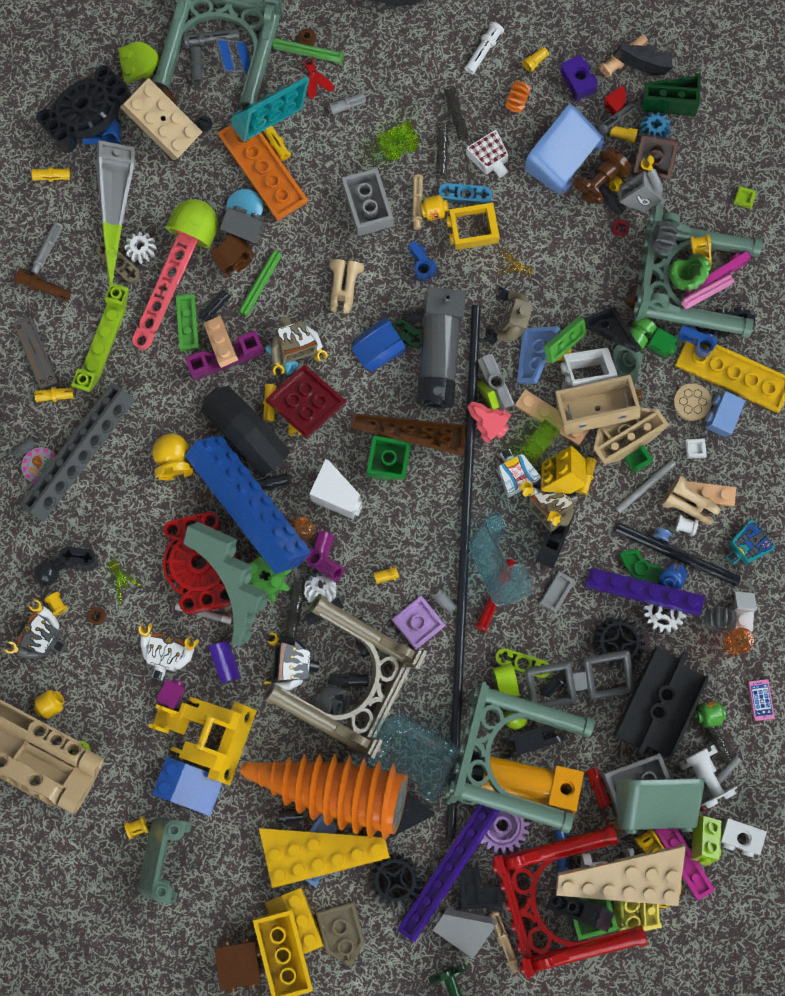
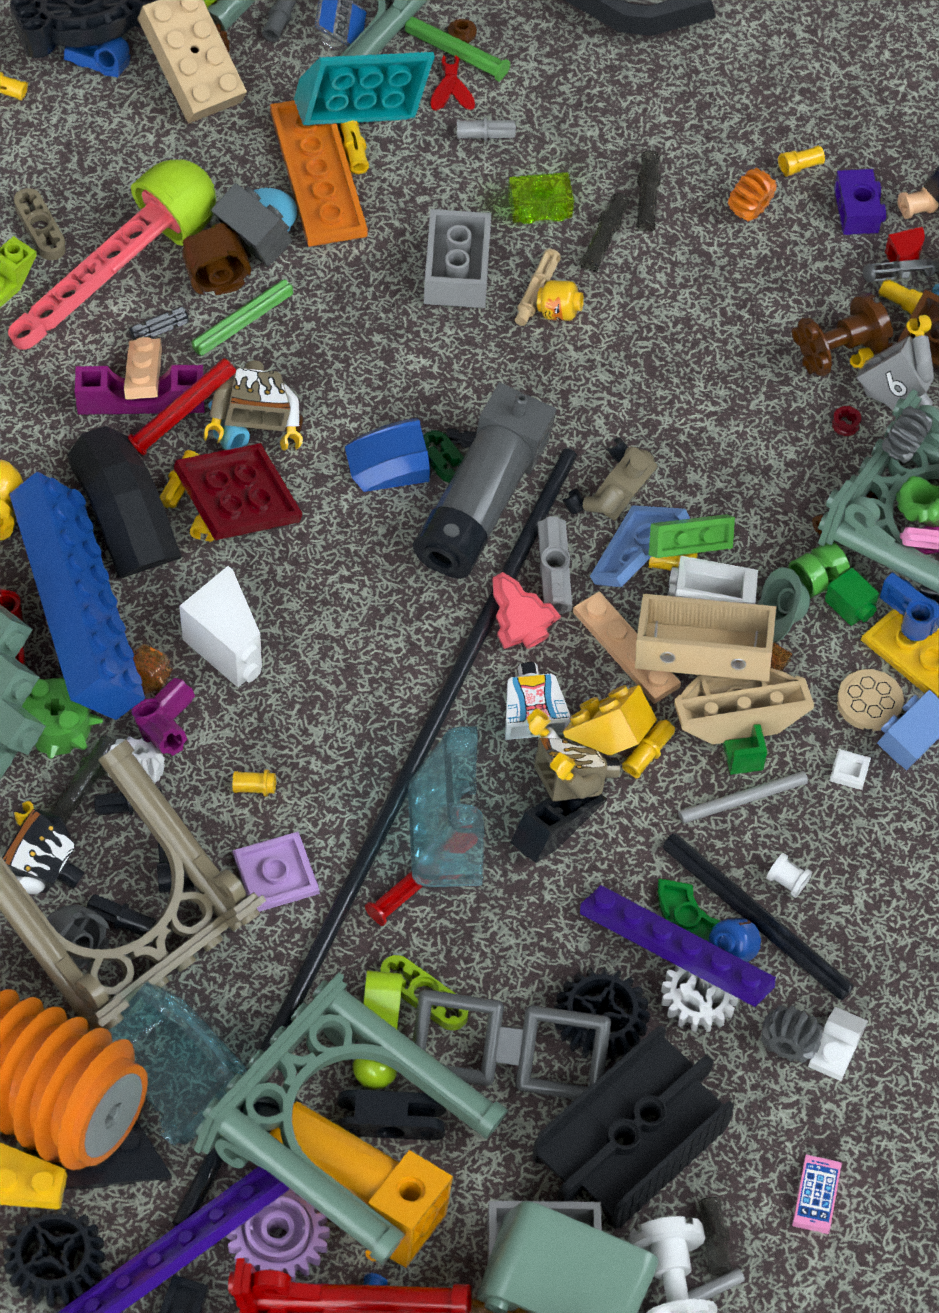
camera: 15 degrees right, 20 degrees down
(114, 176) = (86, 113): light grey plate -> none
(145, 251) = (82, 212): white gear -> none
(187, 322) = (105, 329): bright green plate -> none
(204, 123) = (257, 89): black piece -> none
(254, 361) = (182, 405): none -> red axle
(274, 481) = (136, 589): black pin -> none
(337, 294) = (374, 330): tan piece -> none
(388, 459) = (332, 610): green slope -> none
(418, 253) = (507, 367): blue plate -> none
(431, 434) = (389, 586): reddish brown wing -> none
(444, 601) = (330, 846): light grey pin -> none
(471, 188) = (613, 289): dark azure beam -> none
(488, 395) = (535, 577): lime tile -> none
(489, 41) = (737, 115): white pin -> none
(489, 154) = (675, 256): white torso -> none
(492, 238) = (607, 363): yellow window -> none
(519, 267) = (660, 421): clear yellow plant -> none
(540, 441) = (591, 670): clear neon green brick -> none
(557, 592) = (528, 905): light grey tile -> none
(558, 681) = (464, 1042): black axle -> none
(563, 150) = (792, 280): medium blue windscreen -> none
(598, 787) = (472, 1232): red axle -> none
(611, 200) = (845, 376): black pin -> none
(612, 327) = (774, 543): black wing -> none
(662, 534) = (742, 874): medium blue bush -> none
(679, 487) = (827, 846): tan piece -> none
(710, 714) = (717, 1181): bright green head -> none
(717, 494) = (842, 841): light nougat plate -> none
(738, 641) = (808, 1076): clear orange piece -> none
(749, 544) = (886, 939): torso -> none

